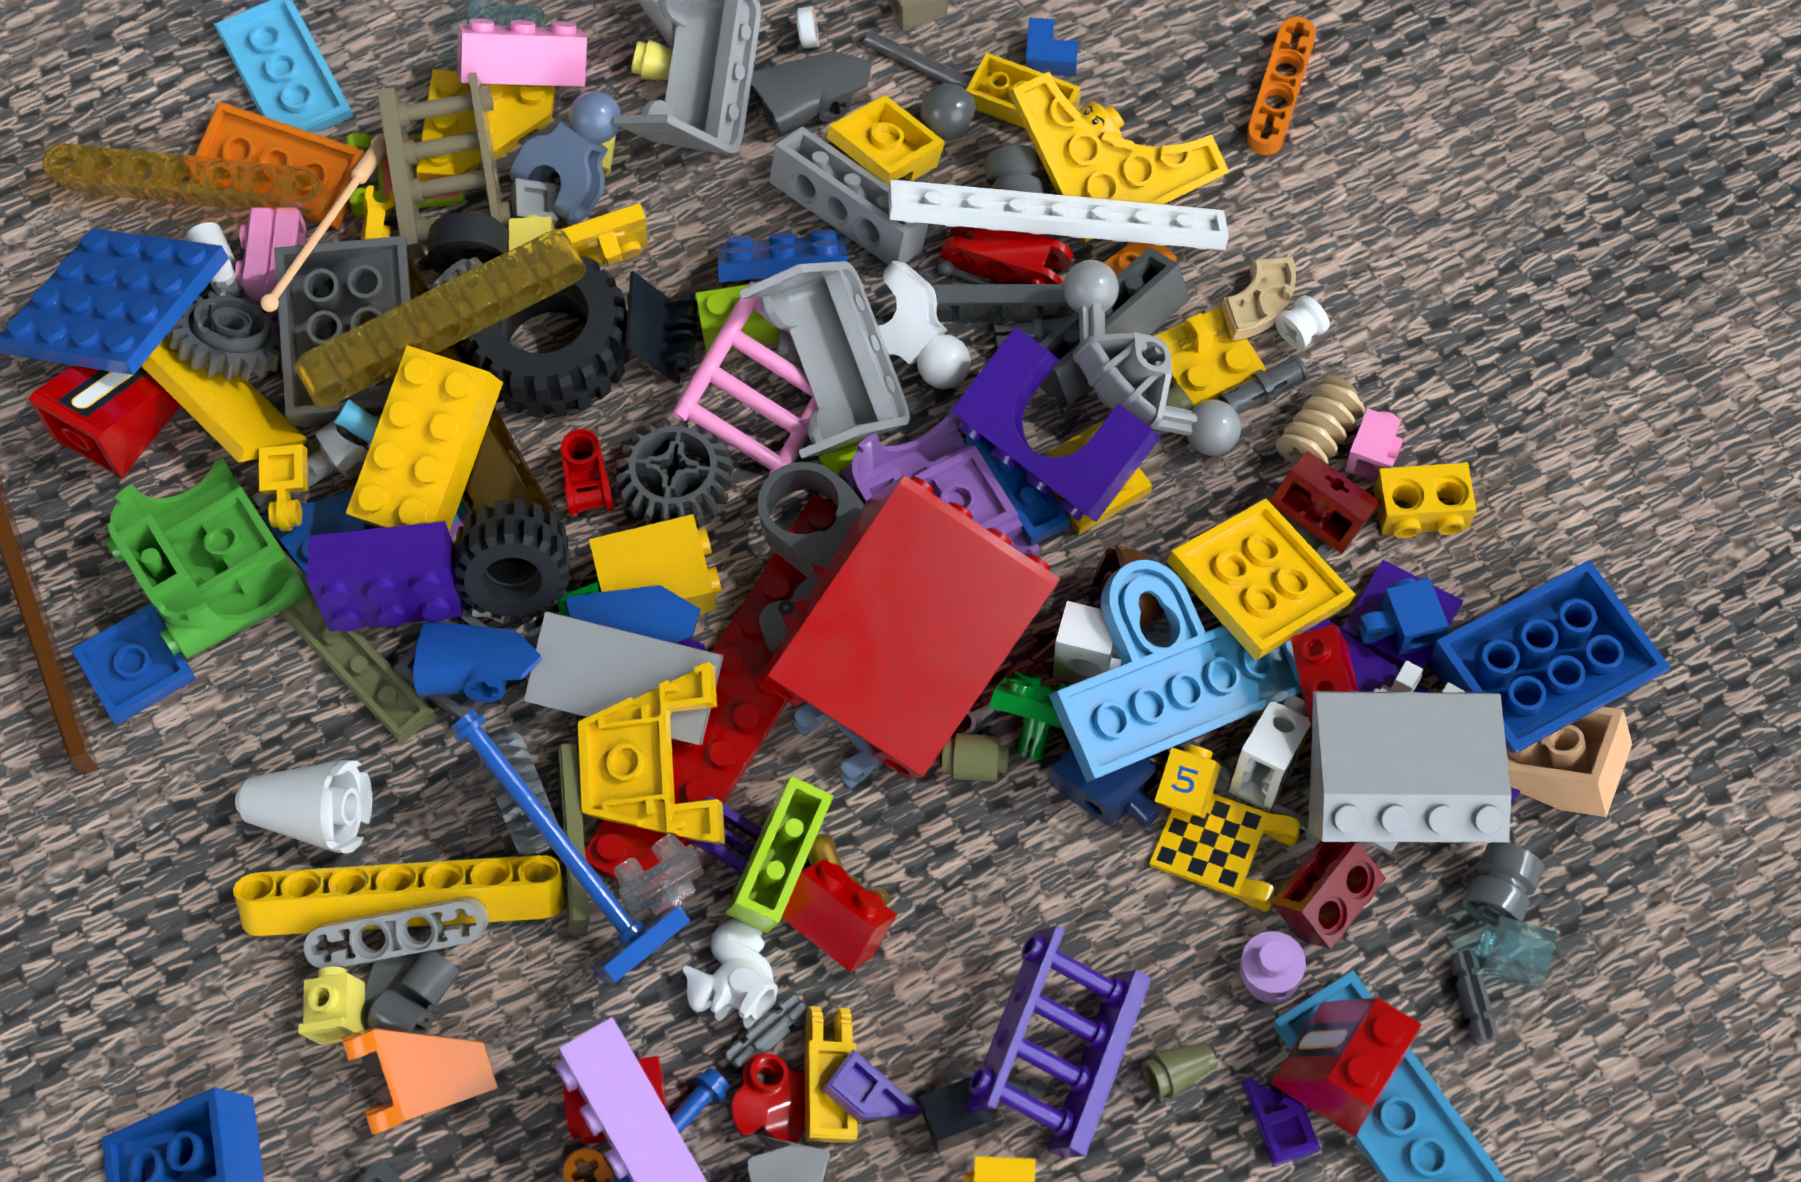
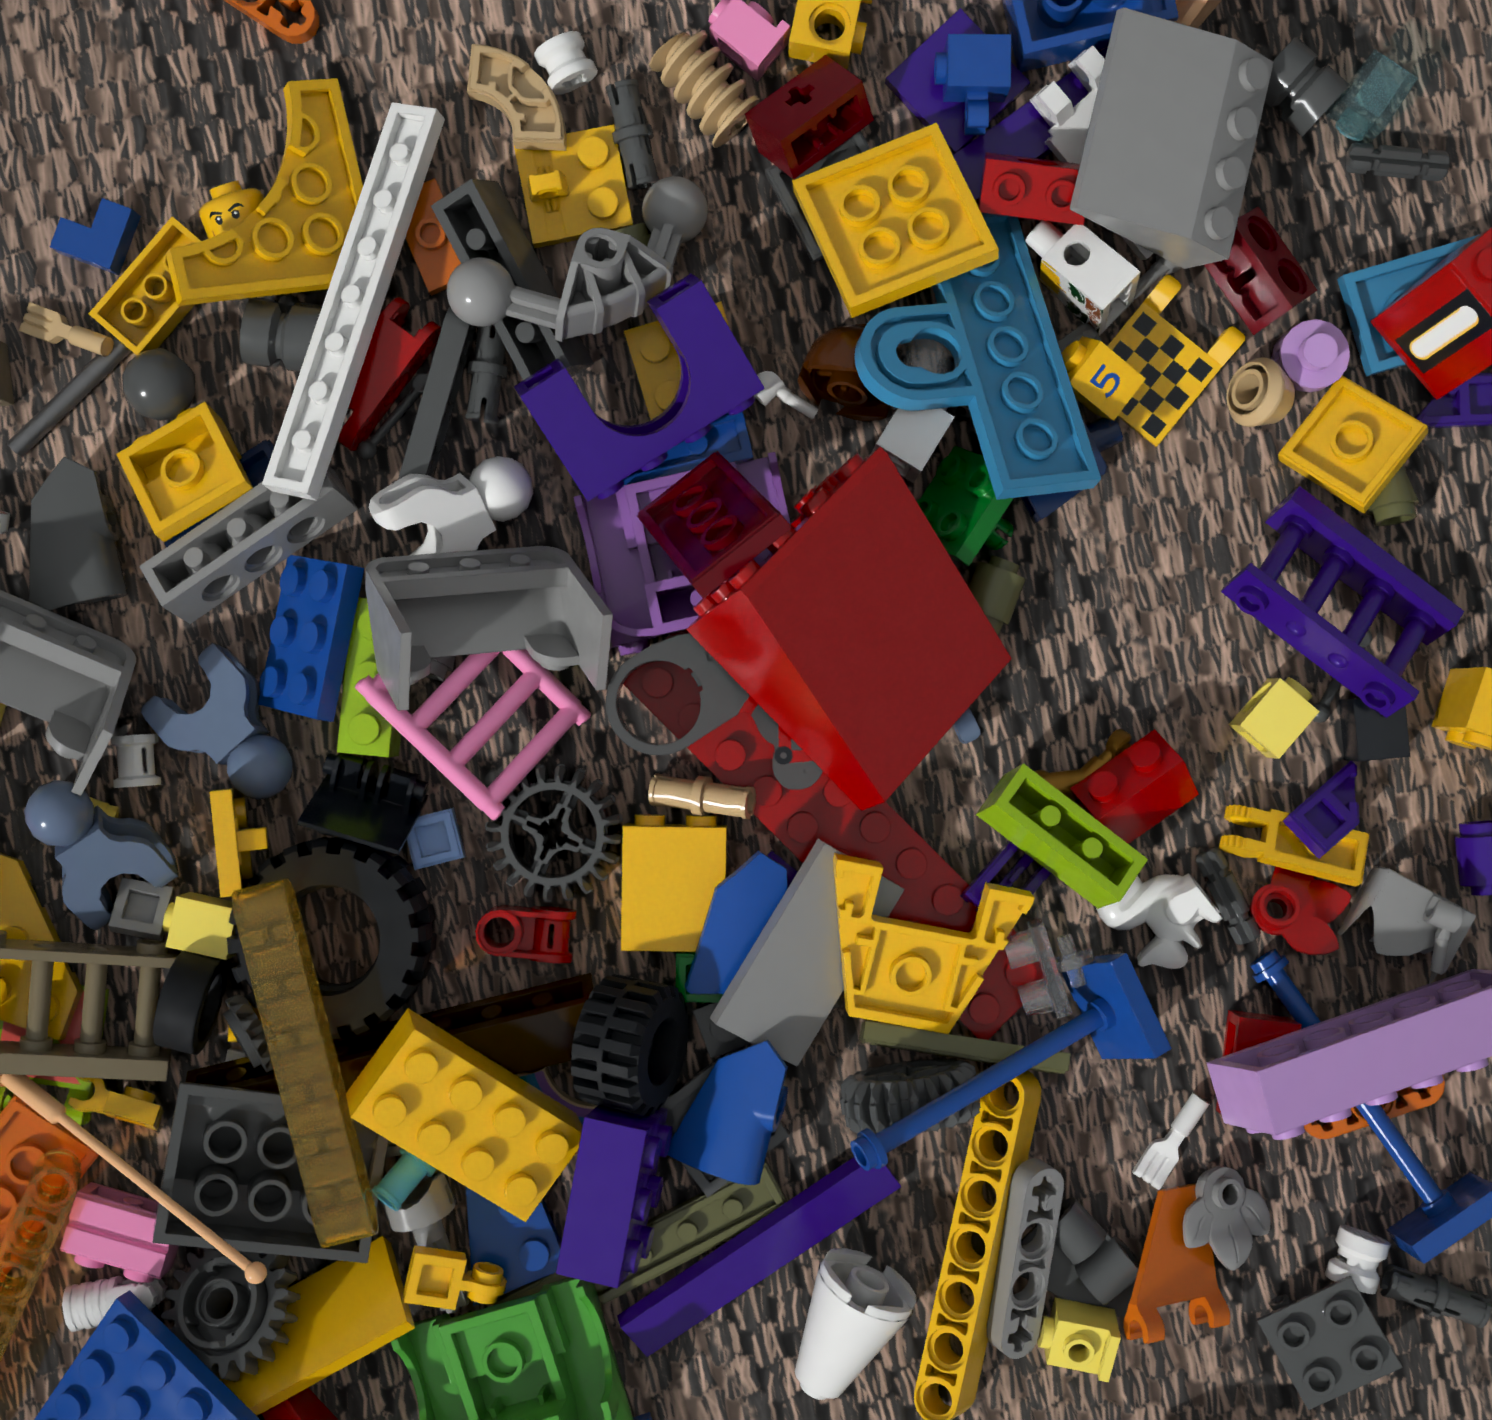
camera: 75 degrees left, 25 degrees up
(357, 725) = (755, 1254): none -> dark purple tile
(463, 1110) = (1225, 1220): none -> light grey plate
(516, 1044) = (1163, 1152): none -> white piece
(645, 394) = (435, 839): none -> light blue tile
(650, 171) = (135, 760): none -> white bush
(695, 223) = (226, 727): none -> sand blue piece
(735, 574) = (702, 796): none -> tan pin
(940, 1023) = (1275, 716): none -> light yellow brick
(958, 481) = (712, 523): none -> dark red tile
(969, 38) = (54, 327): none -> tan piece
(1095, 539) = (775, 386): none -> white hand
(1206, 1021) = (1353, 443): none -> yellow tile
(1223, 931) = (1260, 393): none -> tan cone

